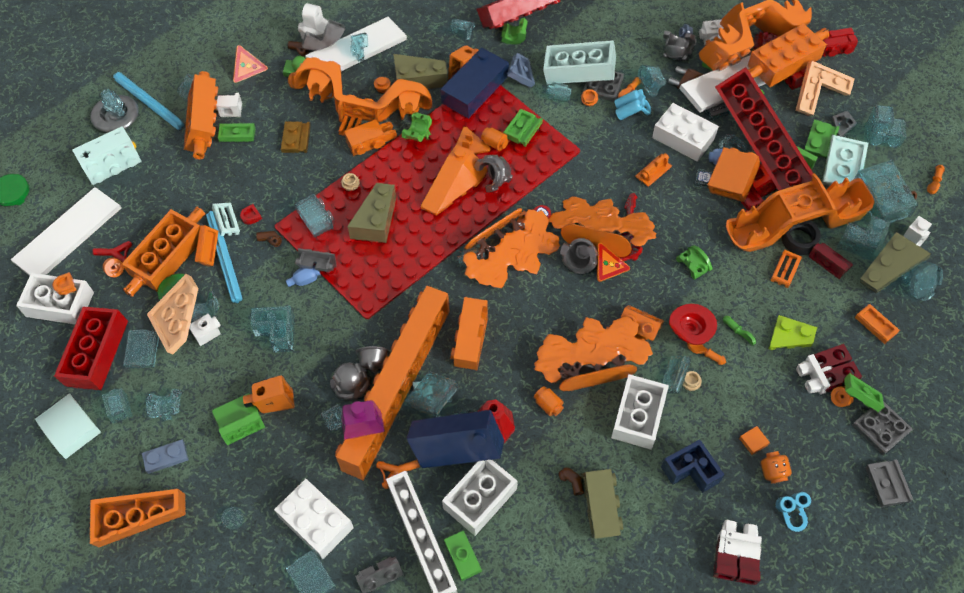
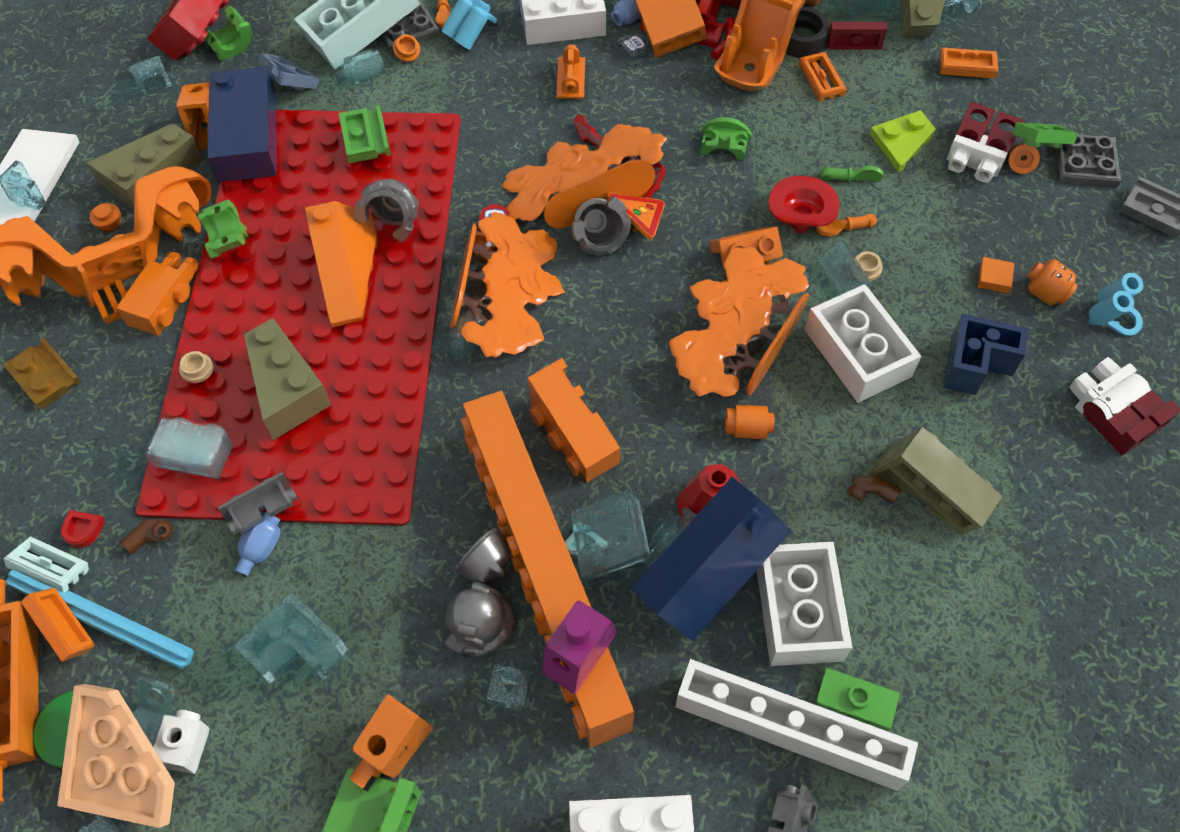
camera: 45 degrees left, 0 degrees up
(395, 469) = (661, 678): orange piece -> none
(472, 142) = (306, 196): orange piece -> none
(494, 138) = (342, 171): orange brick -> none

